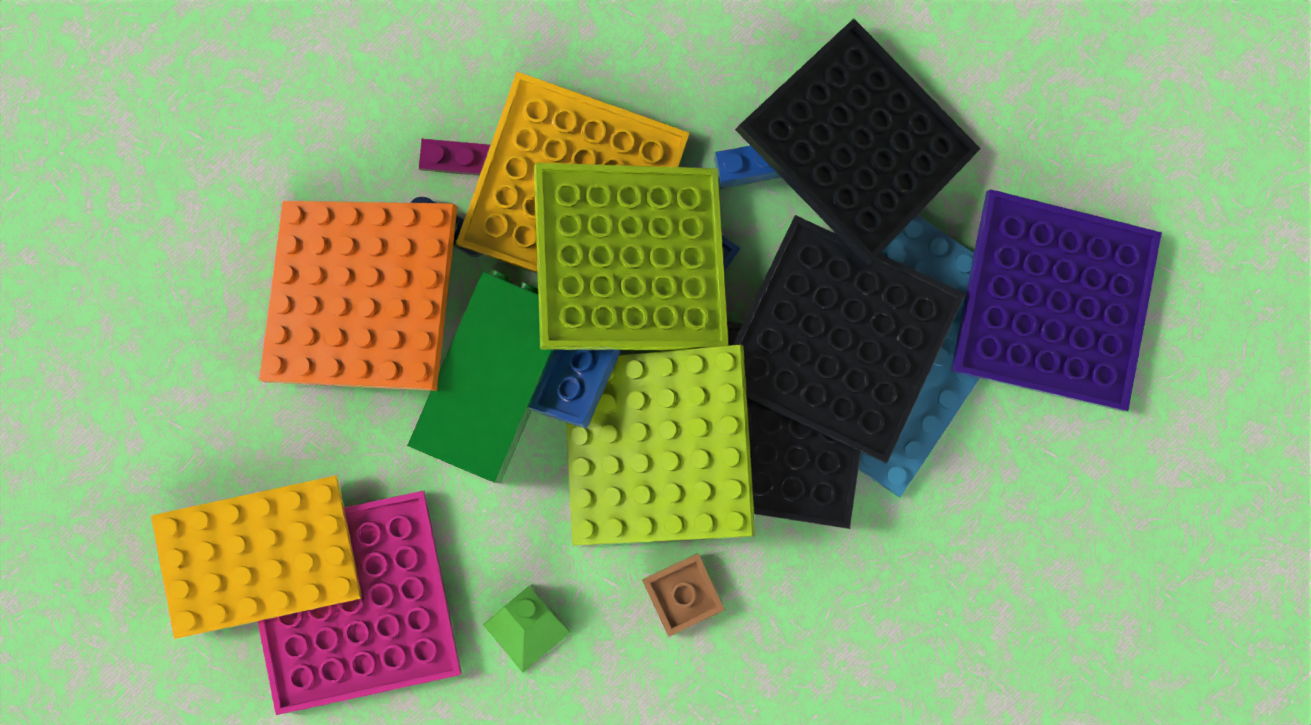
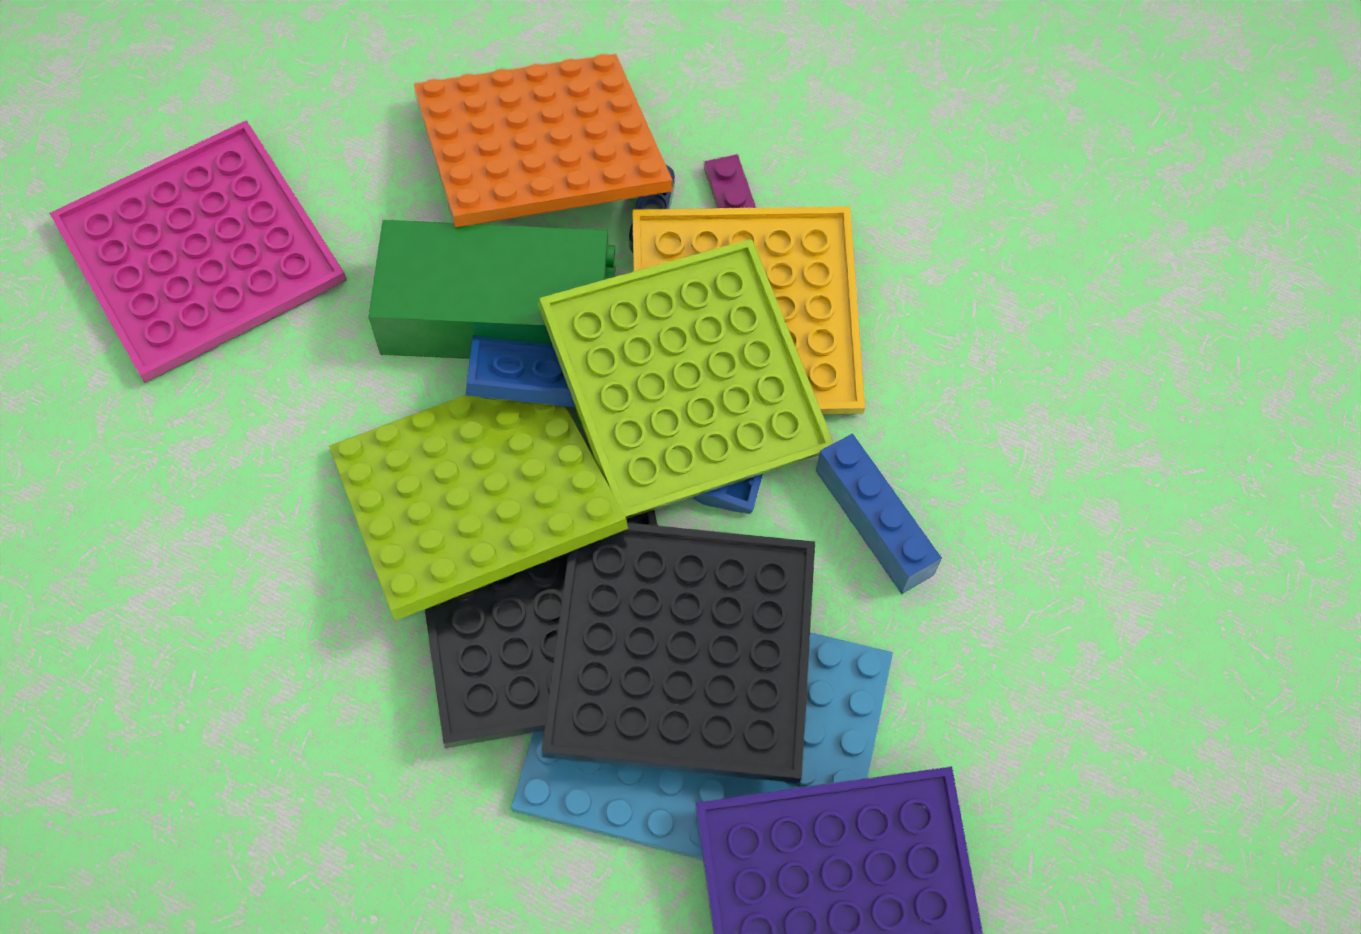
camera: 70 degrees right, 20 degrees down
(256, 557) = (221, 142): yellow plate -> none
(526, 628) = (219, 430): bright green slope -> none
(683, 594) = (304, 586): medium nougat plate -> none
(858, 140) = (939, 587): black plate -> none

